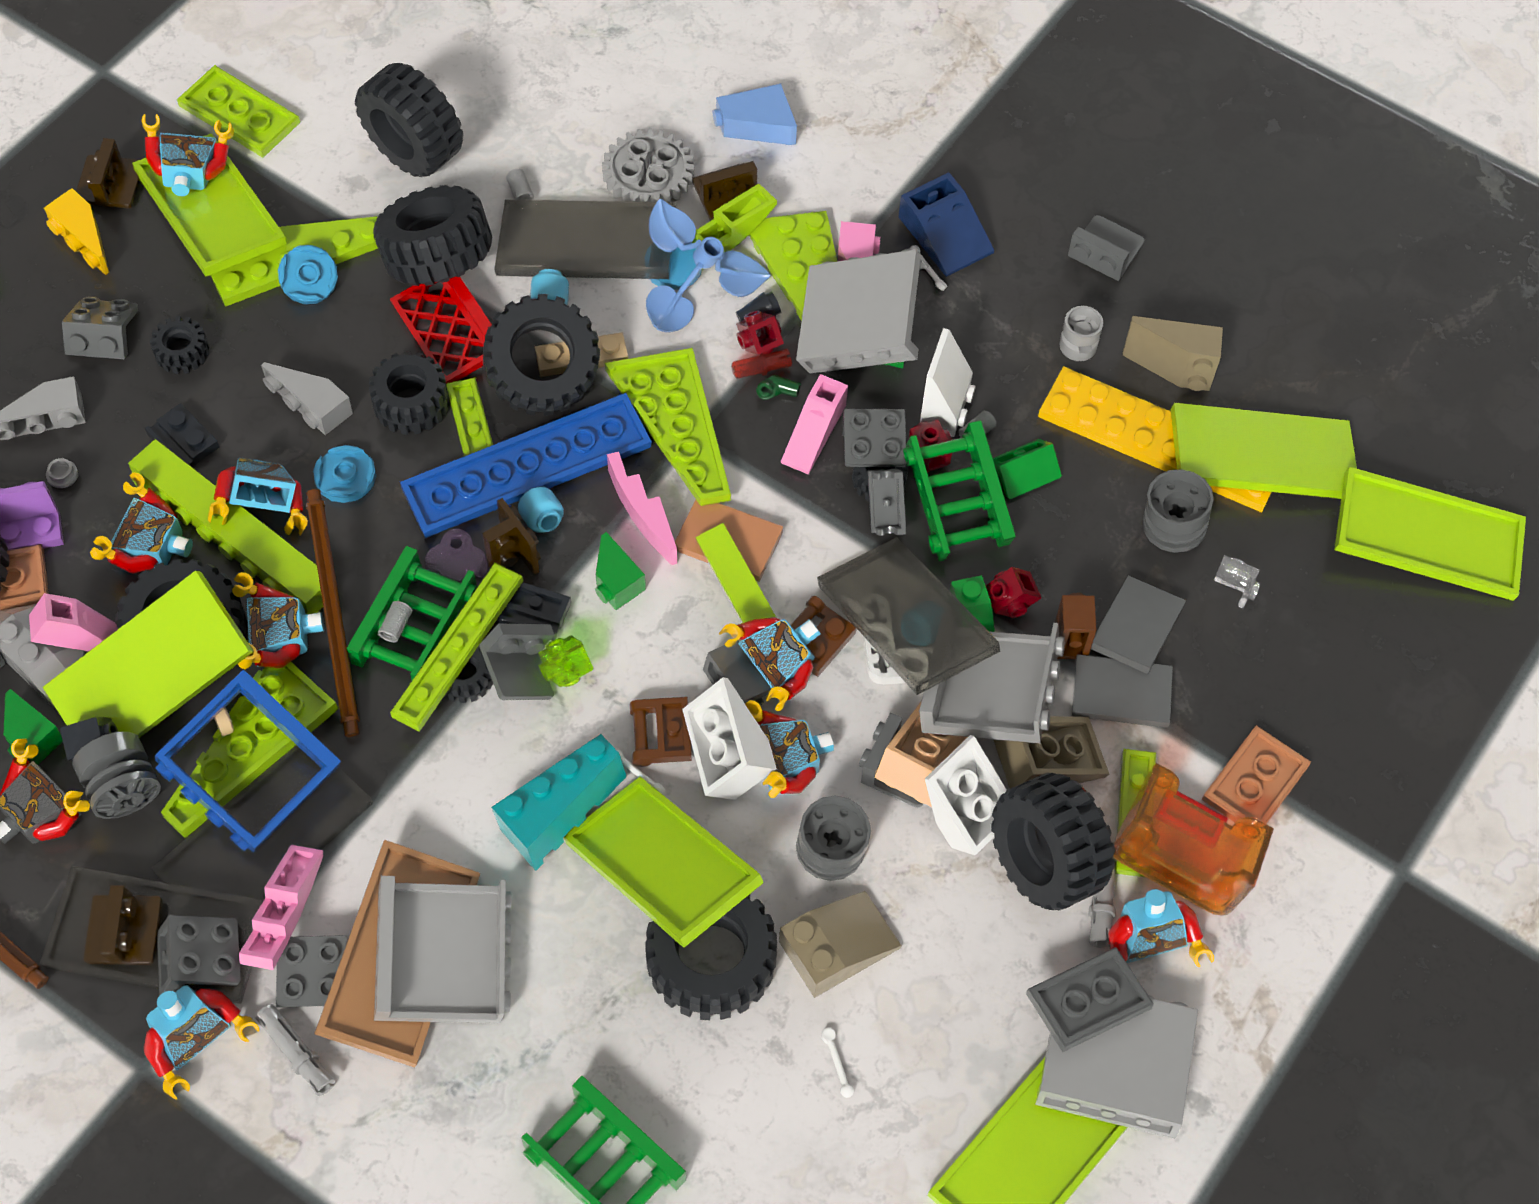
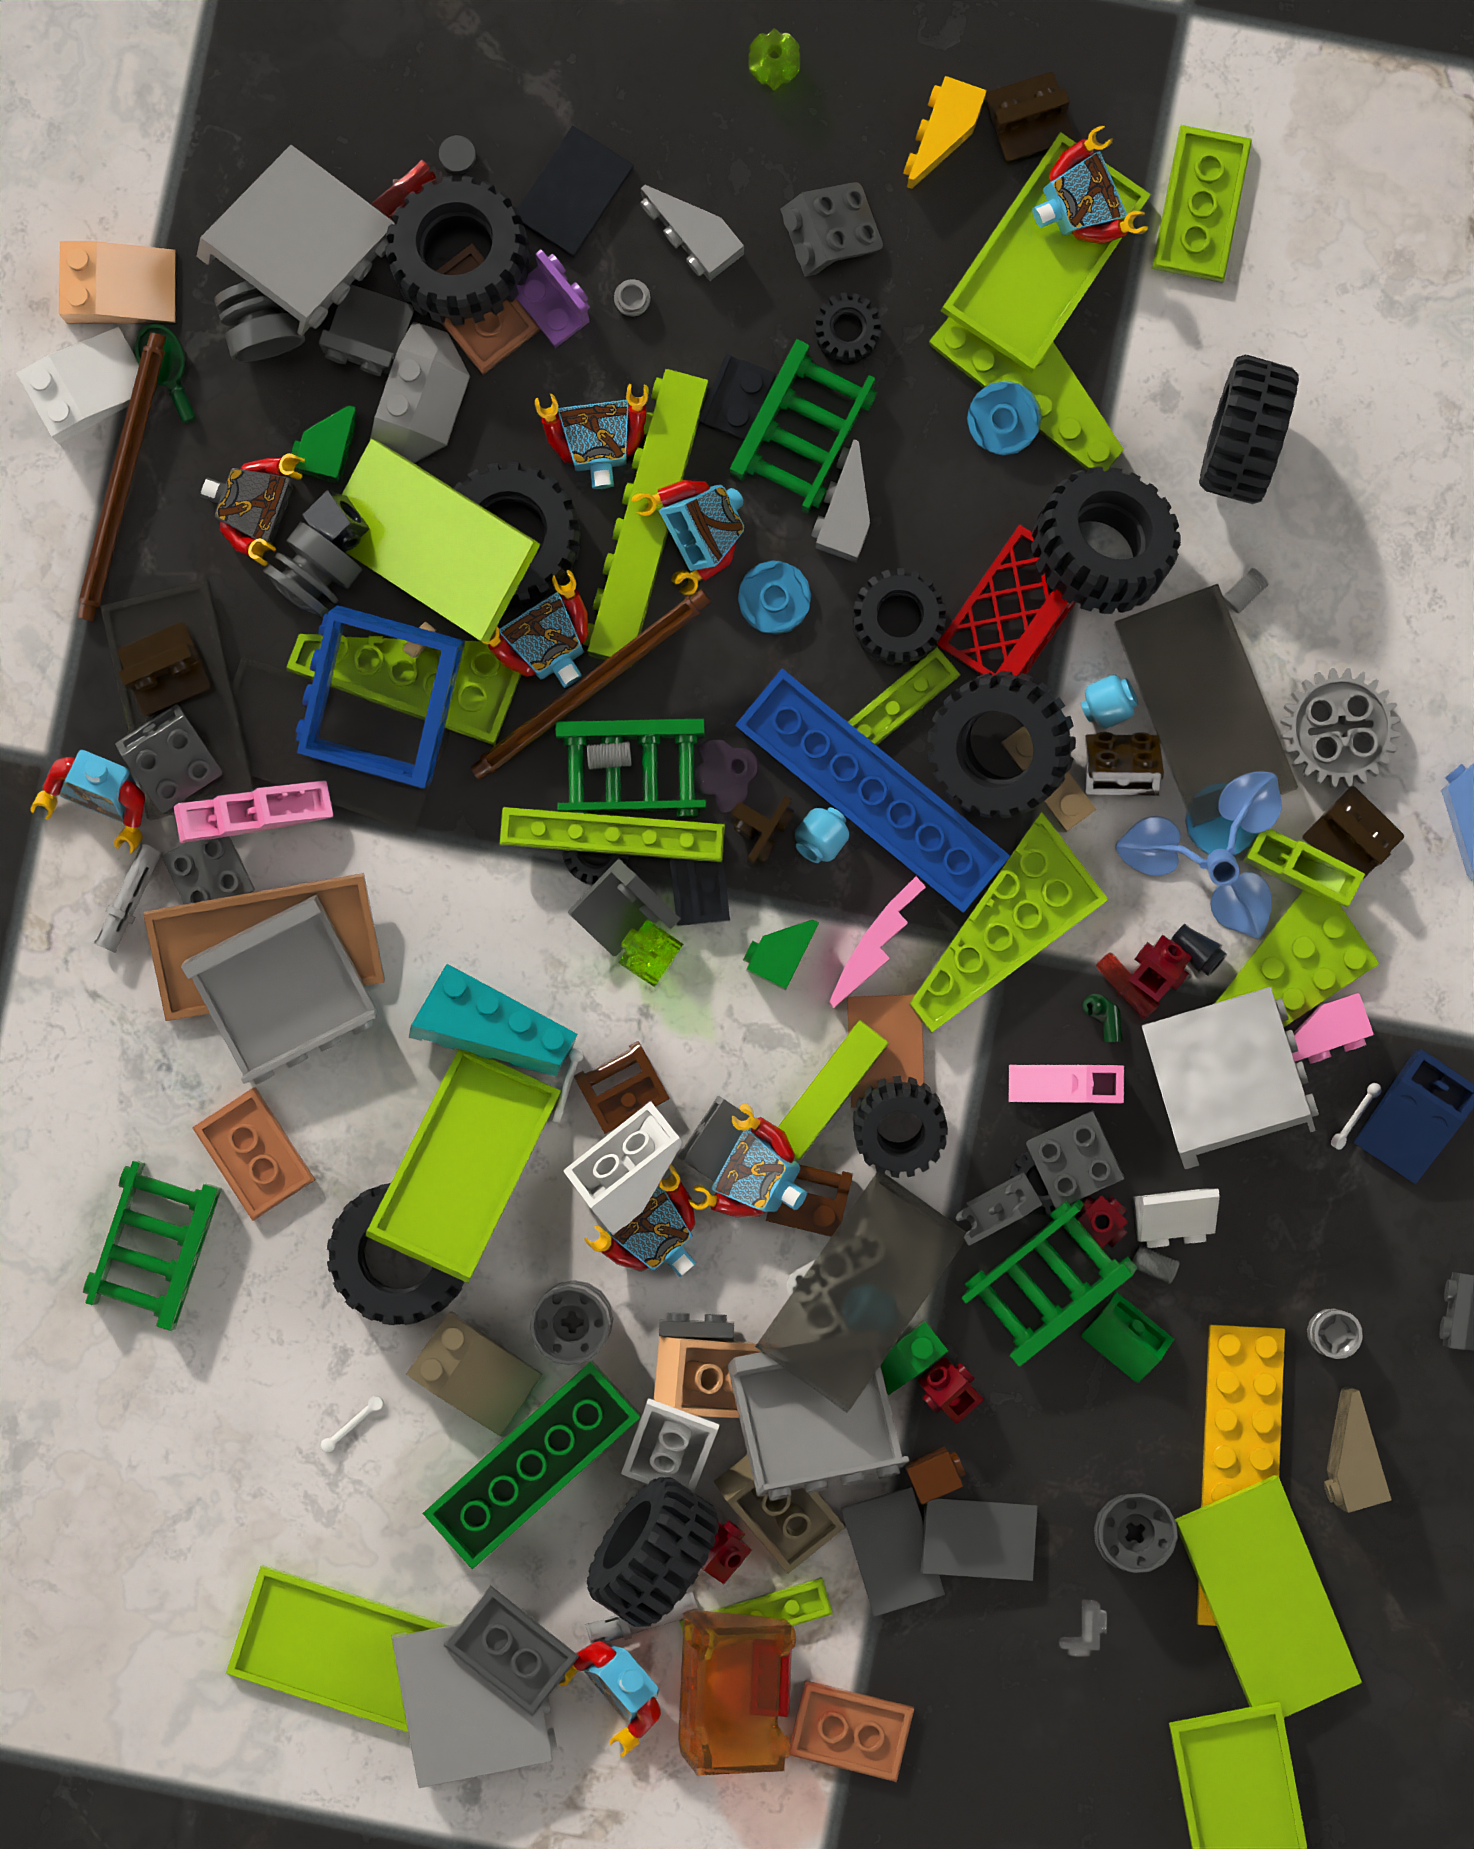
camera: 70 degrees right, 25 degrees up
(68, 623) = (444, 434): bright pink slope -> none
(217, 424) = (766, 429): none -> green fence
(567, 1043) = (253, 1153): none -> nougat tile
(603, 299) = (1123, 764): none -> dark brown bracket
(803, 523) = (904, 1155): none -> black tyre
(937, 923) = (532, 1464): none -> green brick

